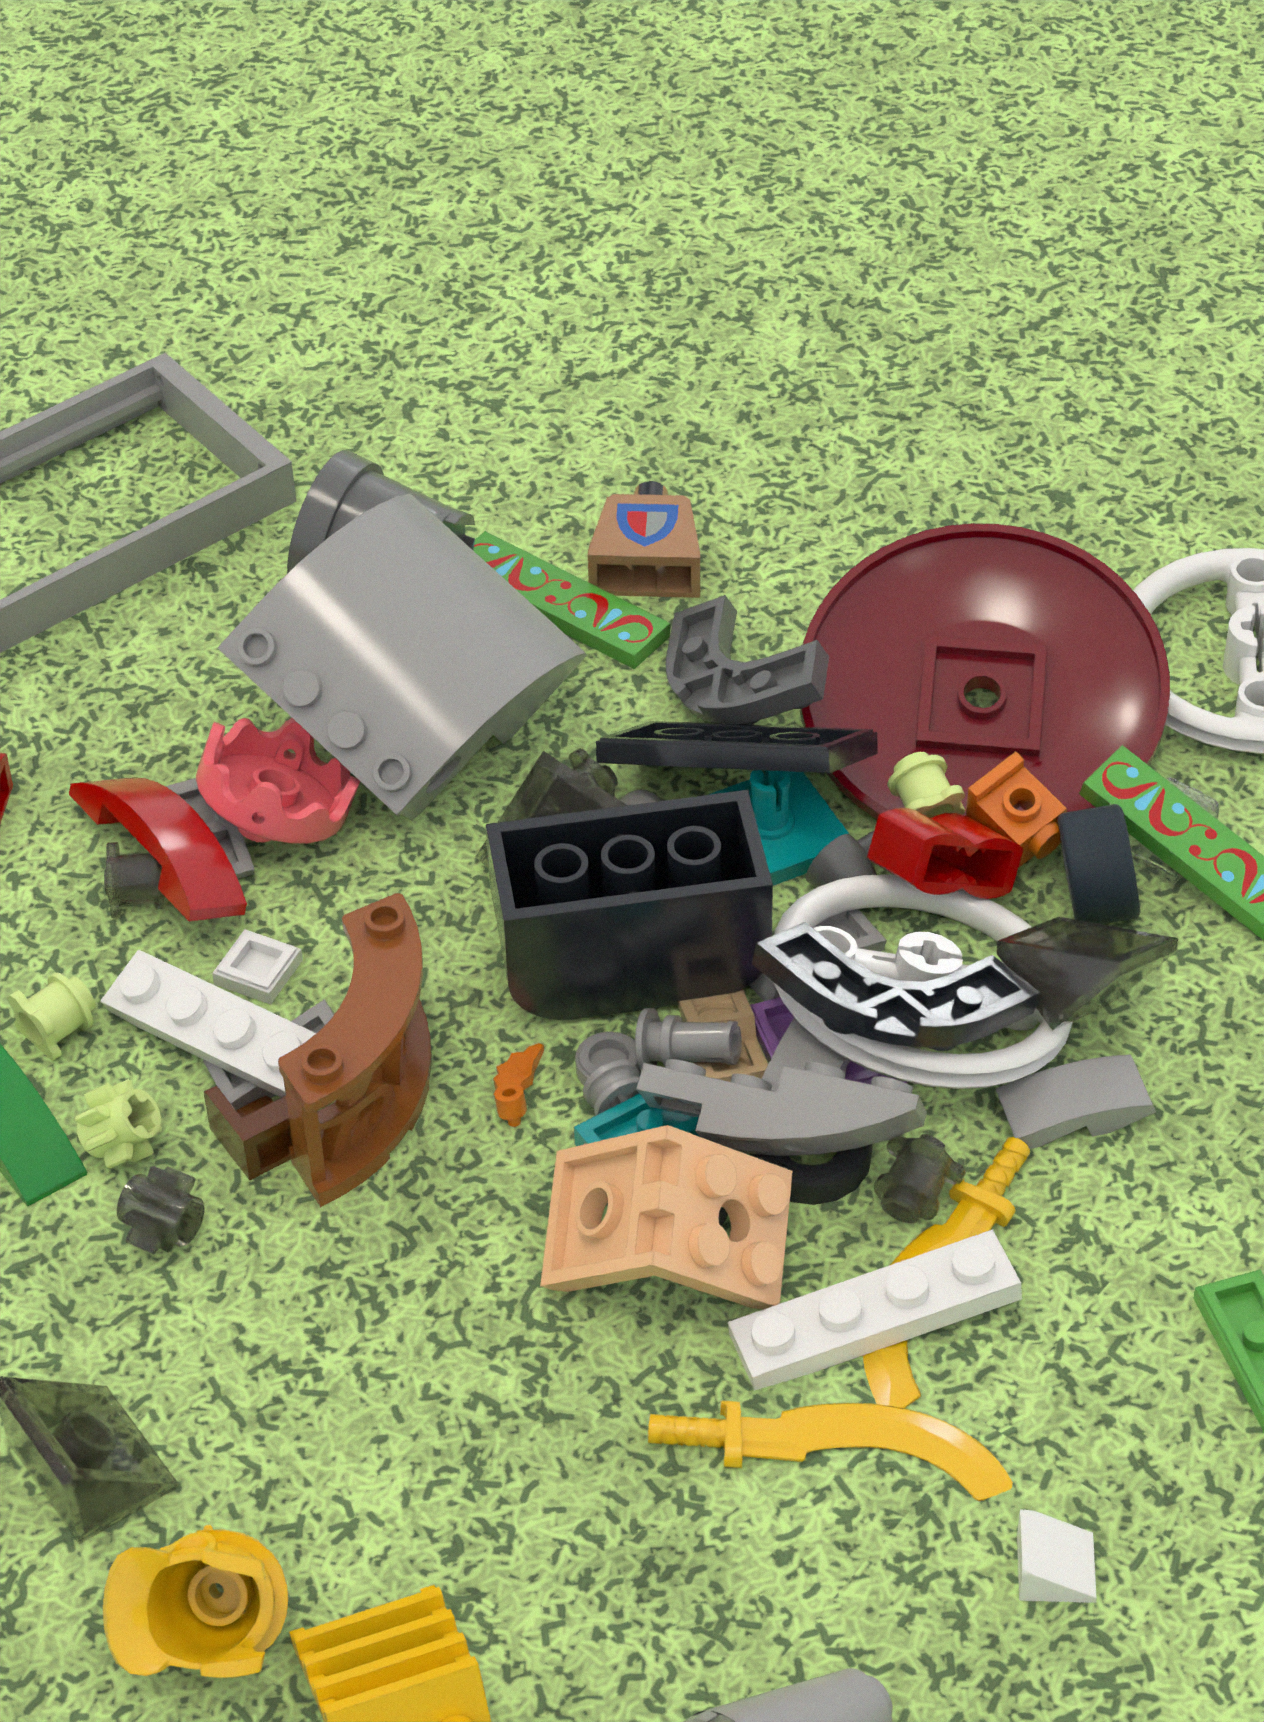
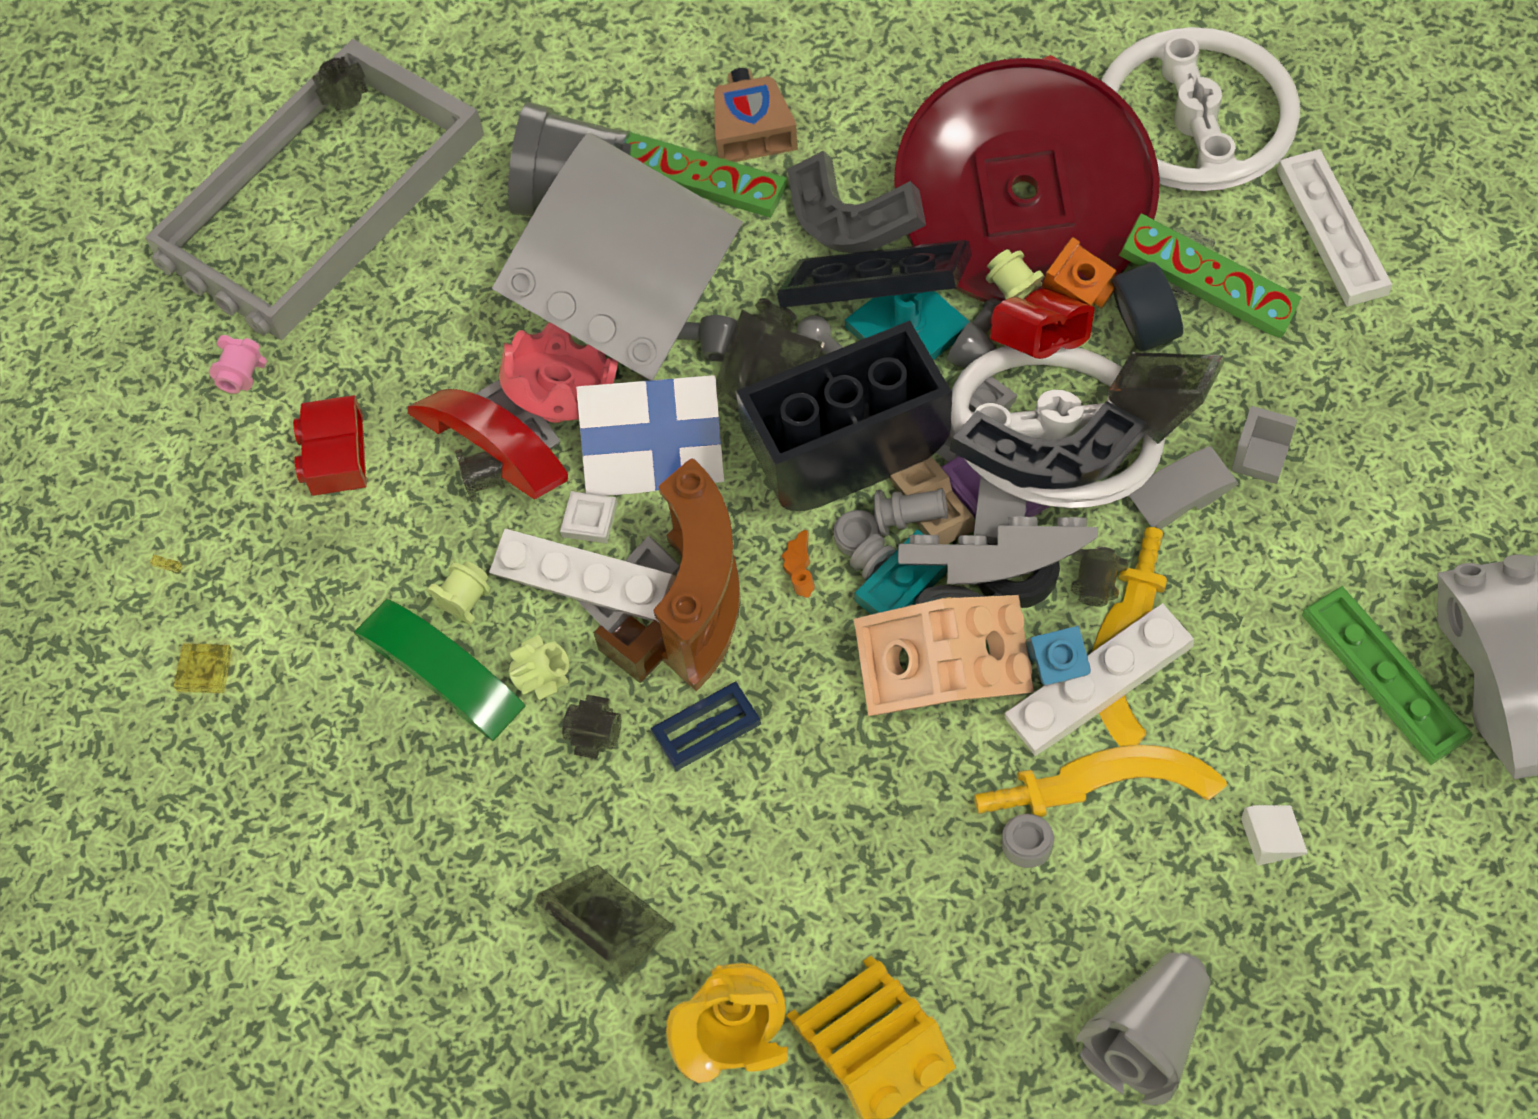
camera: 10 degrees left, 15 degrees up
(126, 395) = (340, 83): none -> clear smoke gear
(318, 1258) = (714, 741): none -> dark blue tile
(357, 853) = (647, 431): none -> sticker
(497, 781) = (713, 333): none -> dark grey bar
(703, 1490) = (1027, 840): none -> light grey tile
(823, 1258) = (1059, 655): none -> dark azure bracket
(1205, 1067) = (1264, 444): none -> light grey panel

